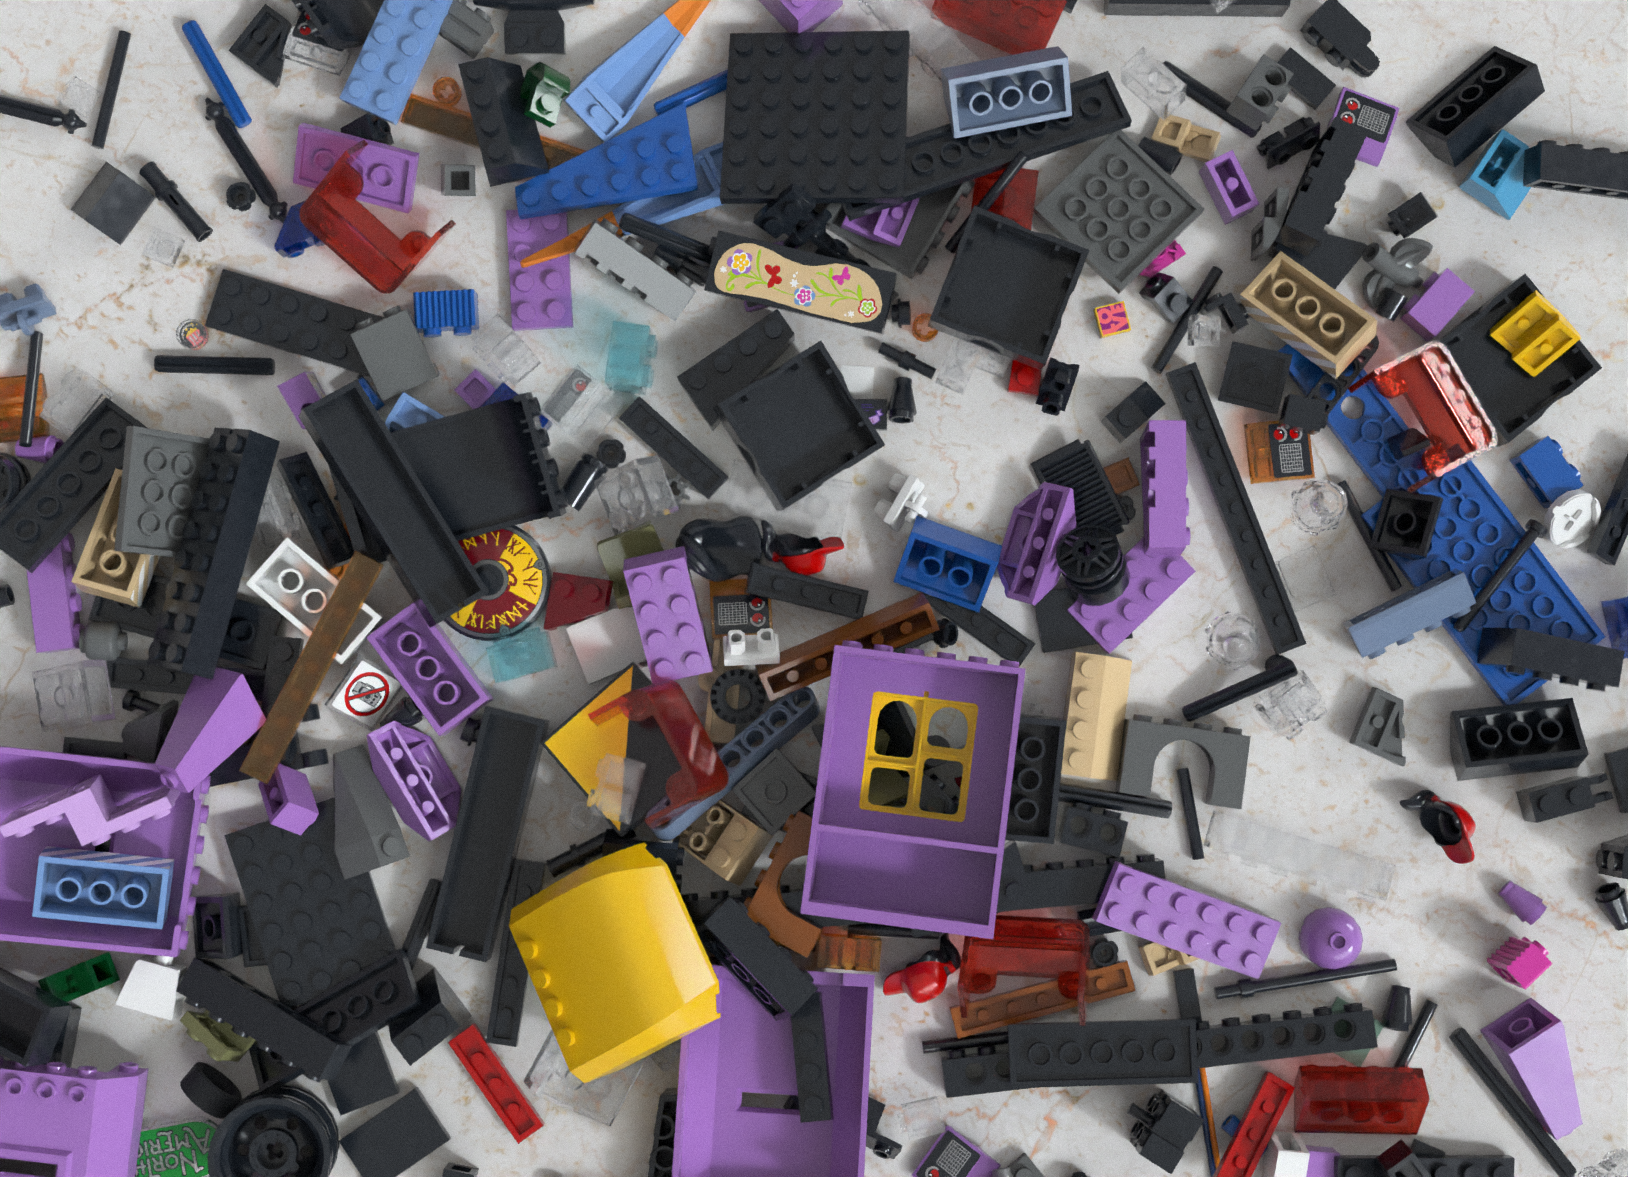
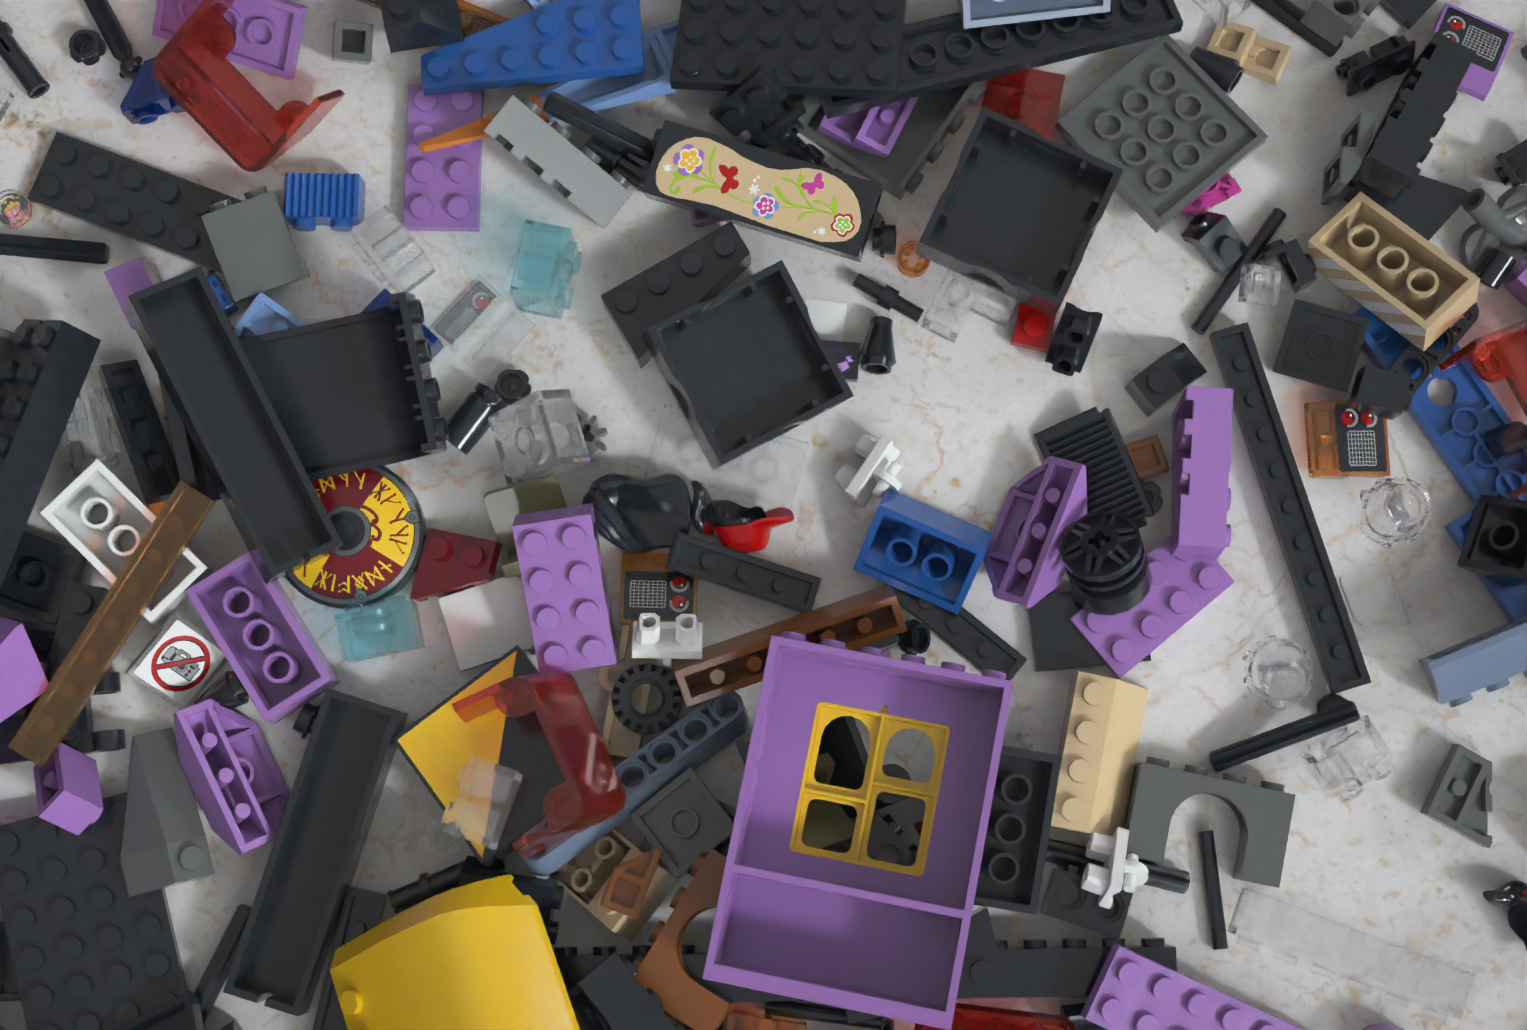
camera: 10 degrees right, 5 degrees down
(475, 390) = (350, 296): medium lavender plate -> none
(674, 448) = (591, 385): black plate -> none
(736, 842) = (630, 883): none -> dark orange tile
(991, 196) = (1009, 97): black bar -> none
(1112, 319) = (1145, 264): tile -> none
(1114, 804) = (1116, 869): none -> white hips
(1228, 187) = (1299, 112): medium lavender brick -> none
(1366, 533) = (1453, 551): black bar -> none

